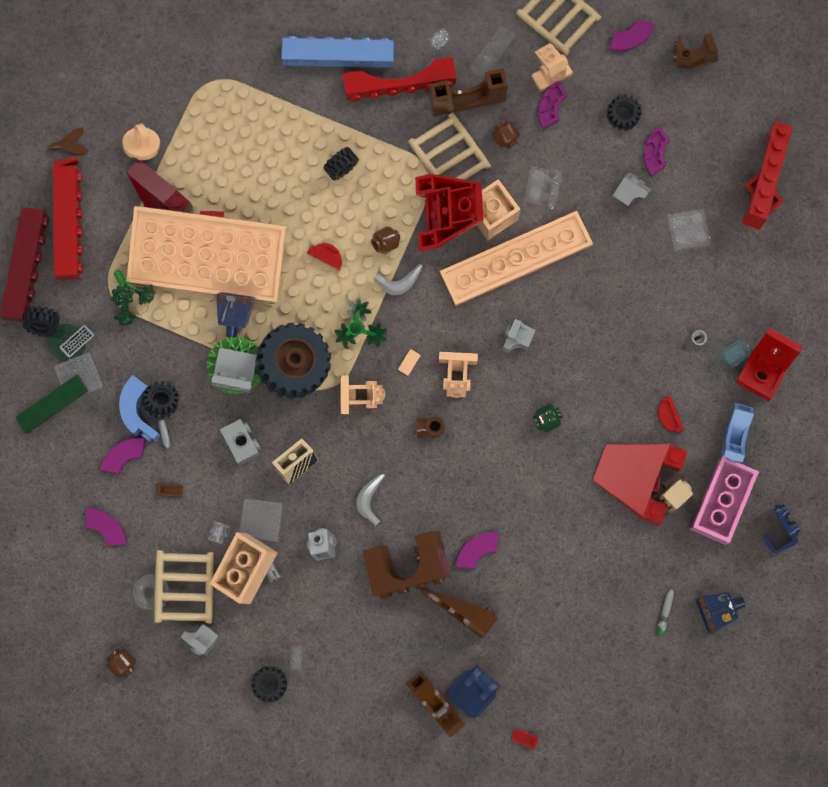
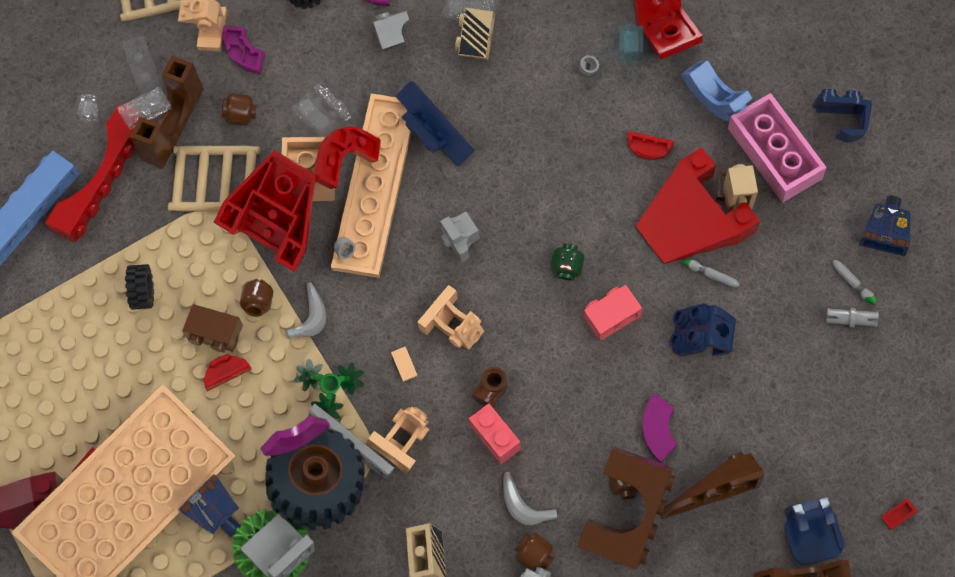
camera: 50 degrees left, 10 degrees down
(305, 332) = (294, 437): none -> magenta tile
(333, 361) = (369, 457): none -> light grey tile
(342, 526) = (534, 552): none -> reddish brown head
(347, 228) = (212, 328): none -> reddish brown brick
(401, 450) = (495, 433): none -> coral brick
(453, 270) = (348, 252): none -> light grey hinge
(461, 75) = (147, 106): none -> clear plate
(515, 218) = (336, 146): none -> red plate
(533, 469) = (612, 312): none -> coral brick
(556, 532) = (700, 328): none -> dark blue piece
(579, 265) = (431, 125): none -> dark blue bracket
(604, 501) = (711, 273): none -> light grey piece
(638, 626) = (852, 317): none -> light grey pin
(667, 248) = (475, 34): none -> brick

